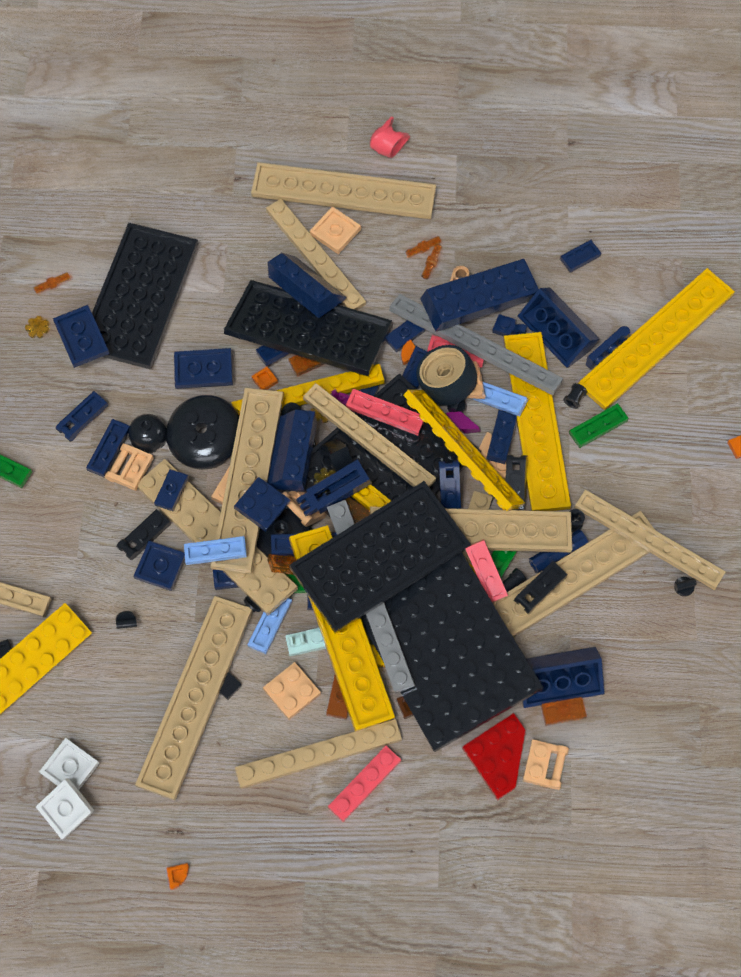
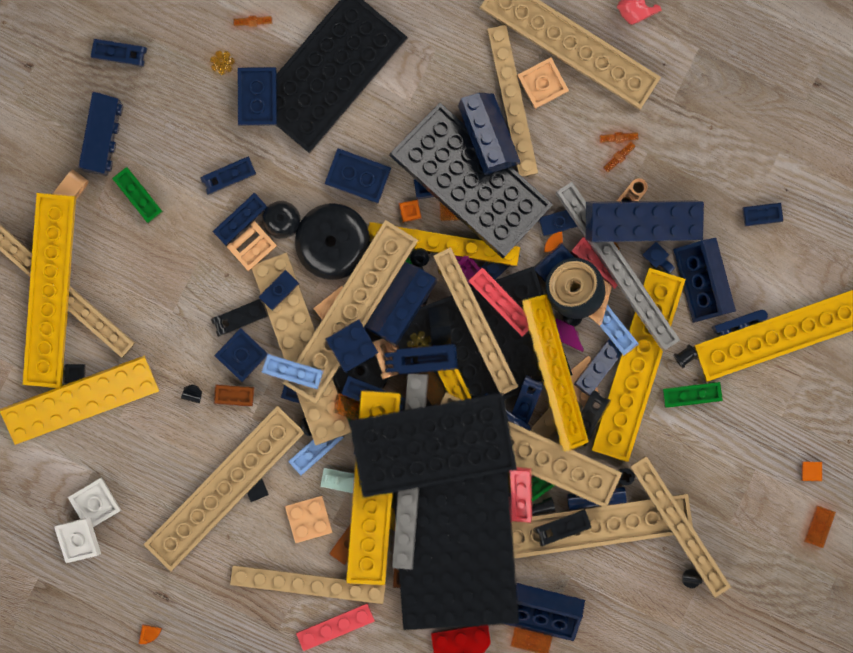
camera: 25 degrees right, 20 degrees up
(168, 605) = (234, 395): none -> dark orange plate

